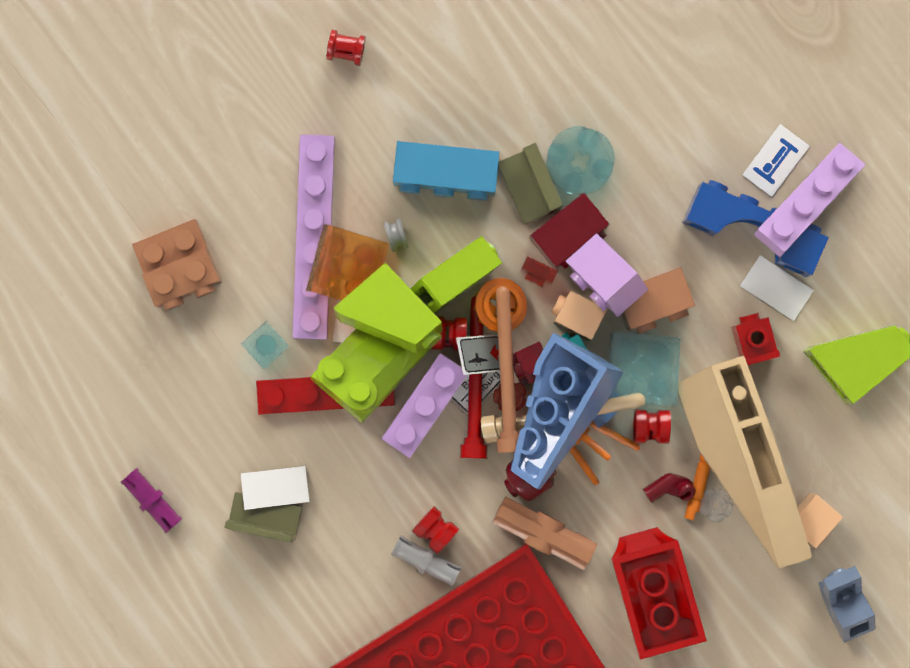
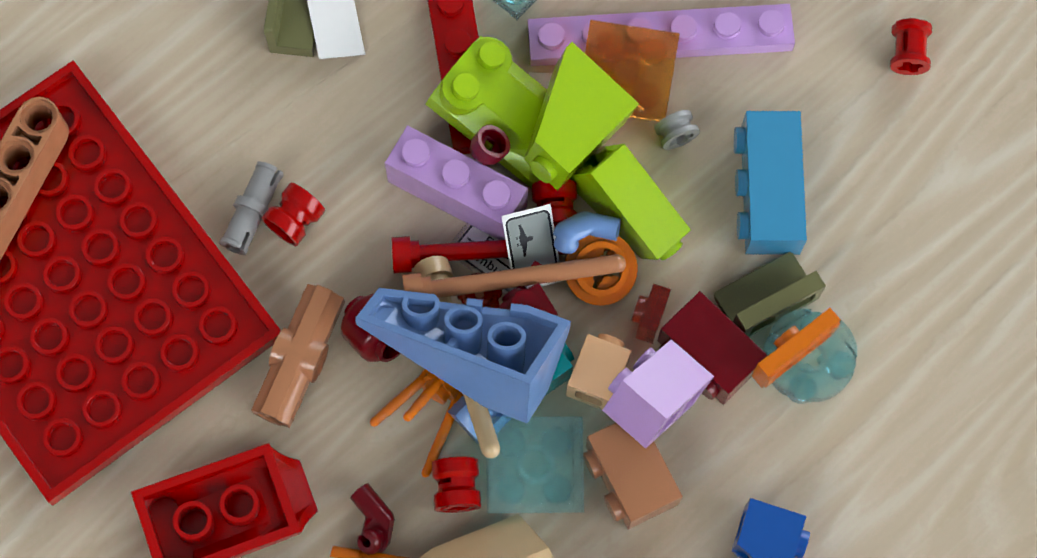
camera: 85 degrees right, 15 degrees down
(409, 374) = (498, 150): none -> dark red hinge
(472, 315) = (582, 225): none -> medium blue arm
(580, 171) = (794, 346): none -> orange plate

